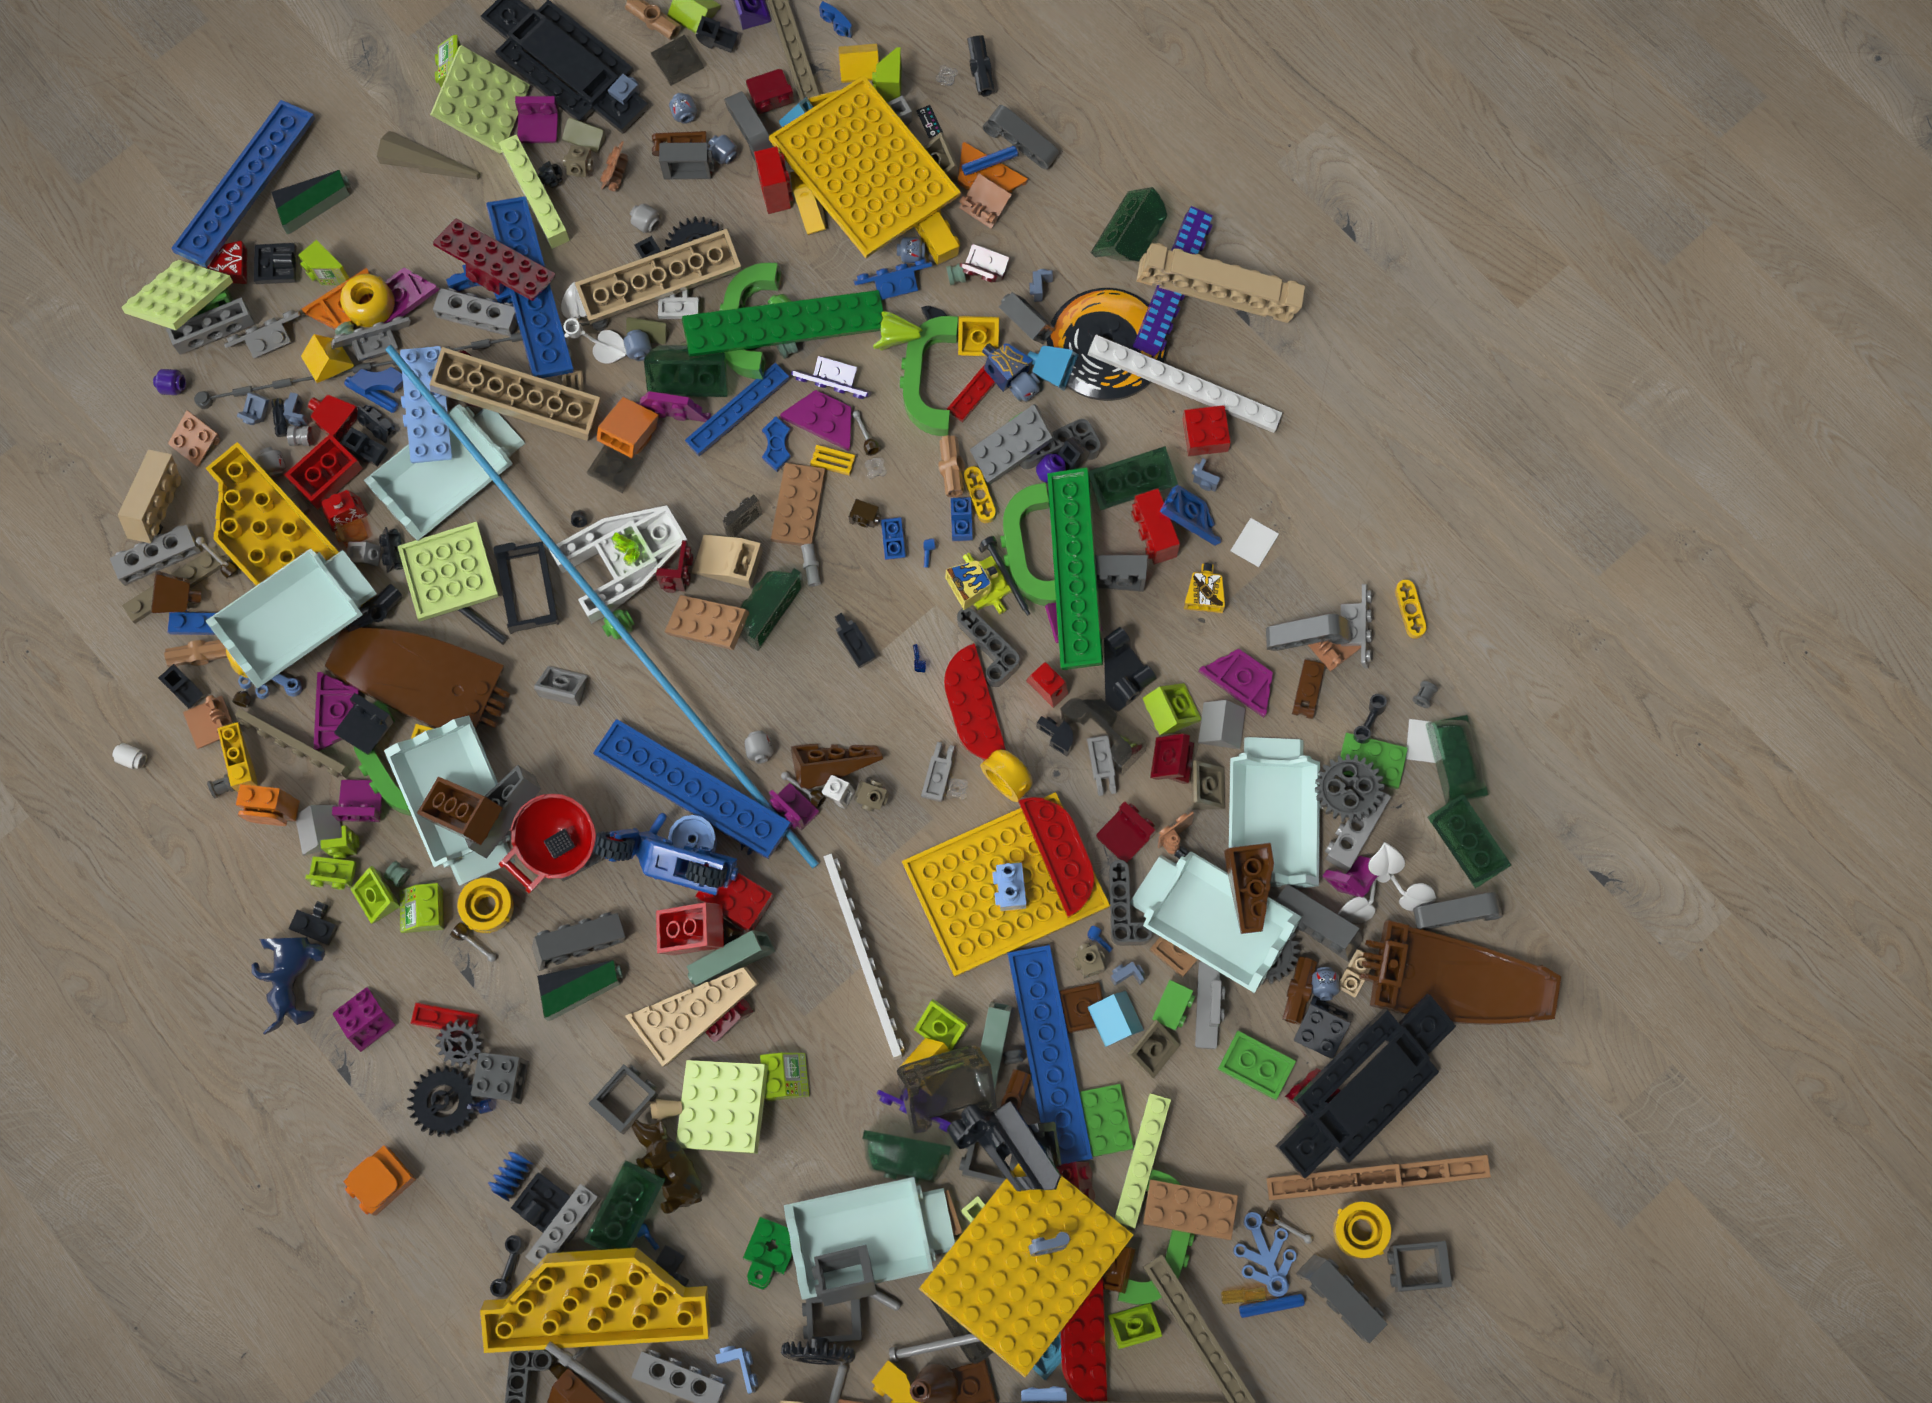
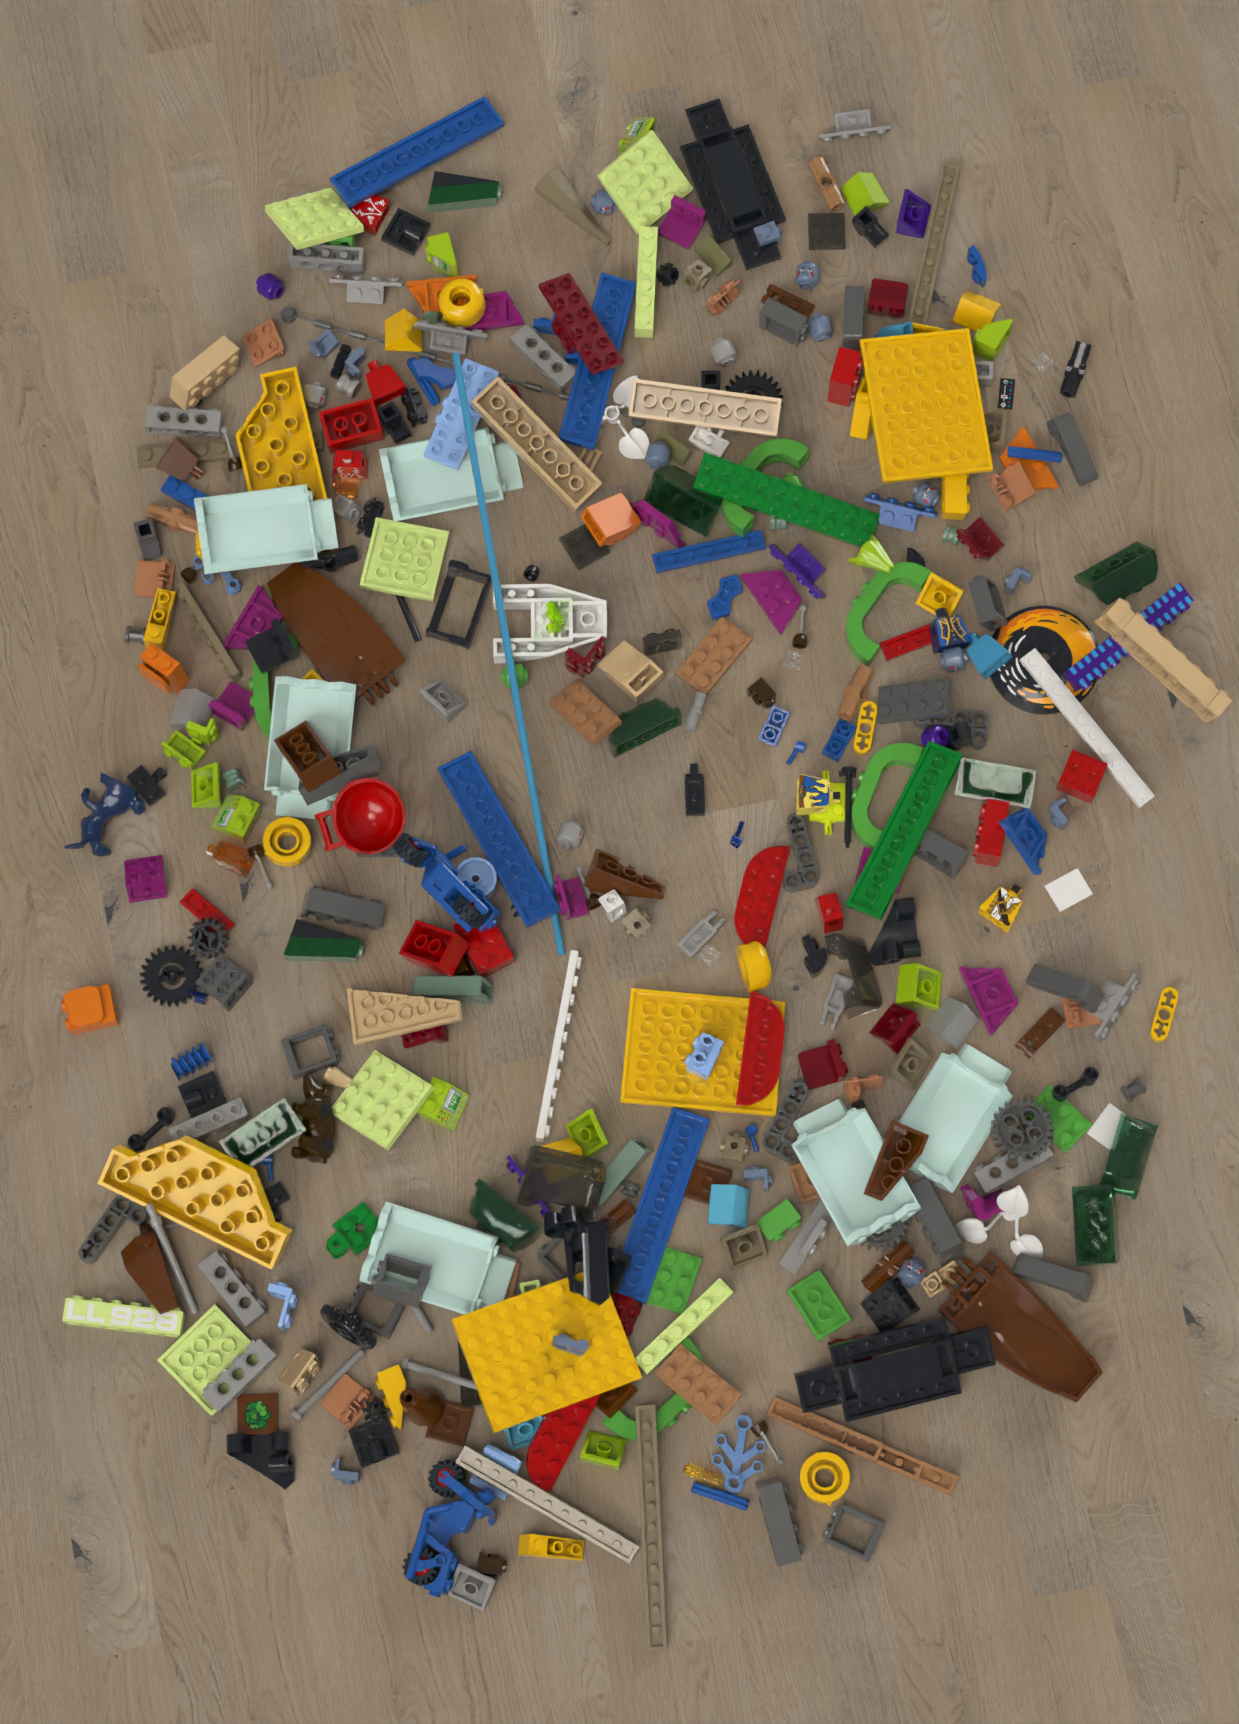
camera: 30 degrees right, 0 degrees up
(129, 756) = (78, 573): white brick -> none
(438, 951) = (231, 858): none -> clear orange torso
(450, 139) = (602, 202): none -> sand blue head
(559, 843) = (370, 825): black slope -> none
(836, 453) = (746, 629): yellow tile -> none

